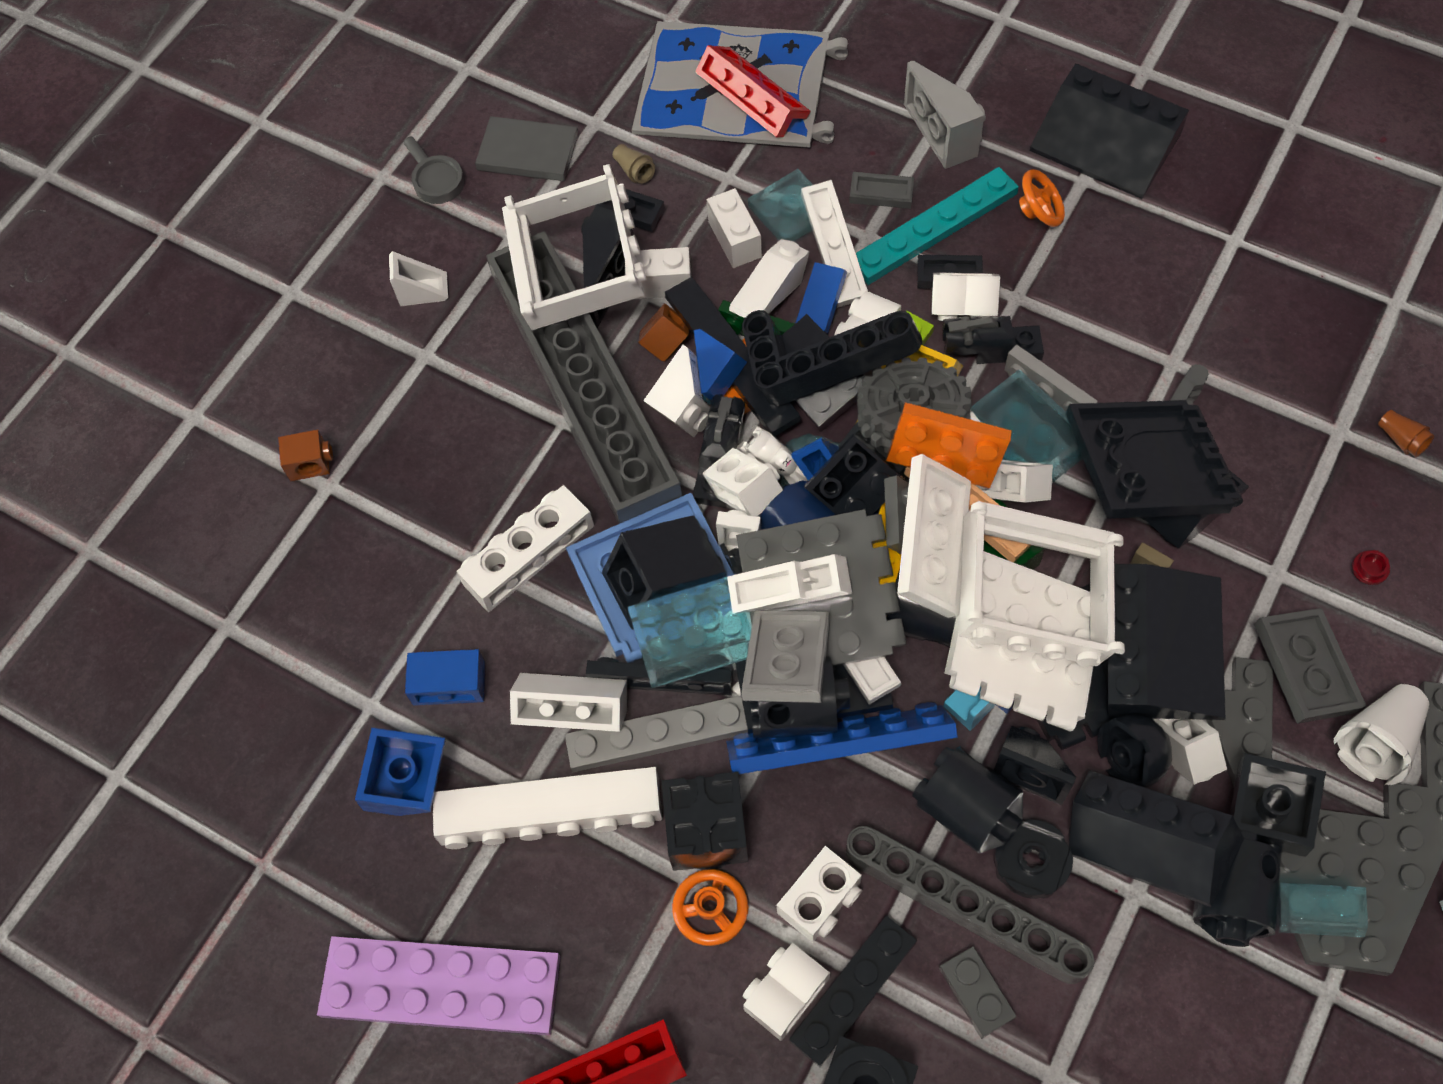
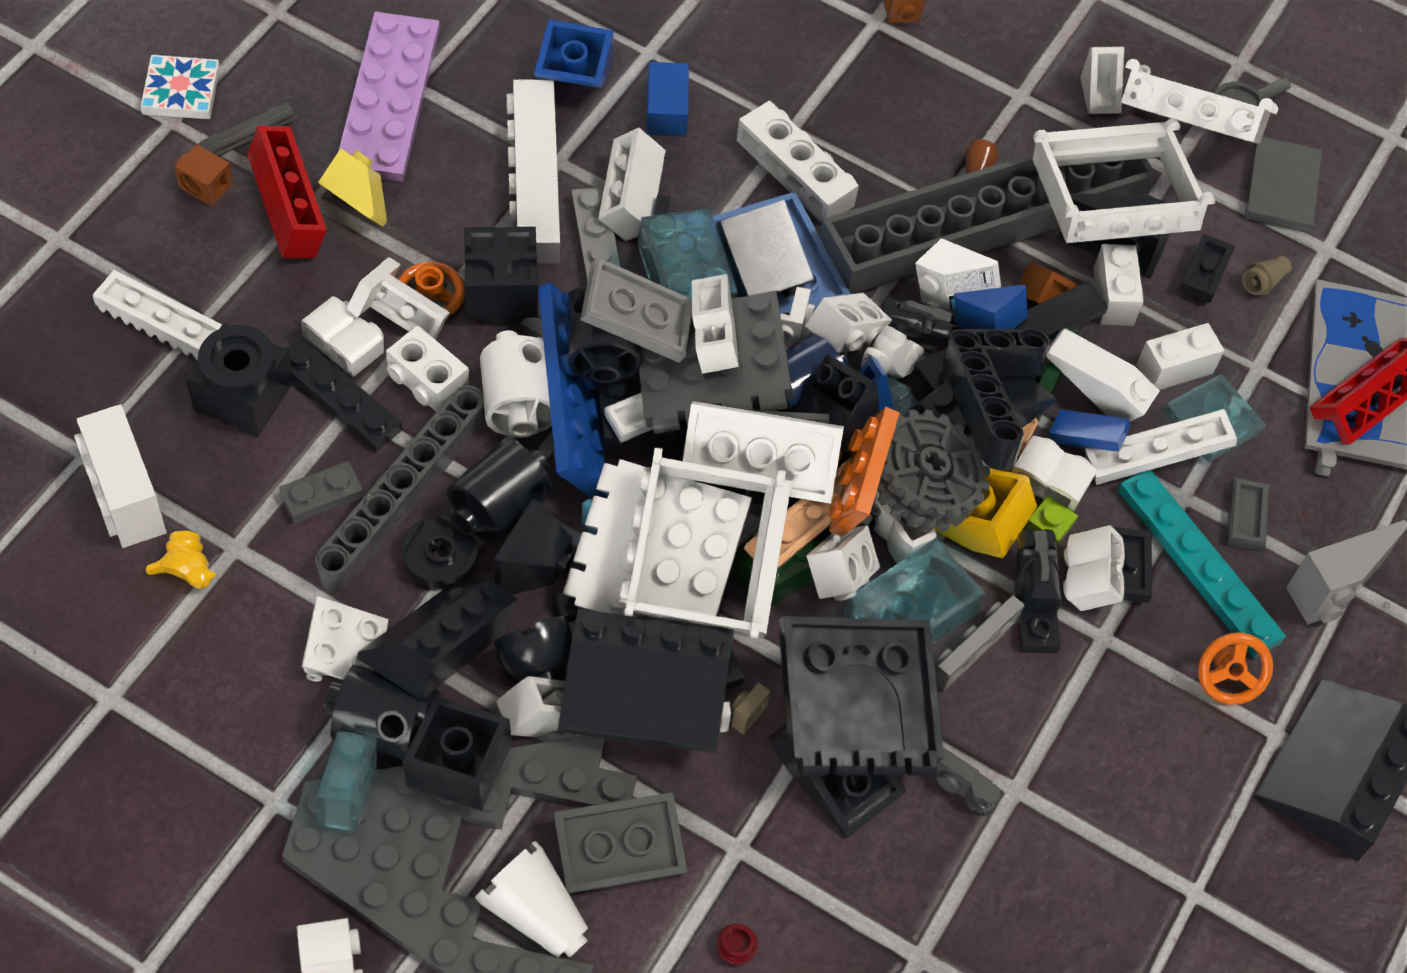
camera: 80 degrees right, 5 degrees down
(473, 189) = (1196, 105): none -> white window
(518, 386) = (980, 155): none -> dark orange cone
(586, 999) = (356, 184): none -> light yellow slope
(736, 949) = (396, 300): none -> white bracket
(842, 793) = (515, 385): none -> white cylinder
(1154, 942) = (337, 637): none -> white hinge

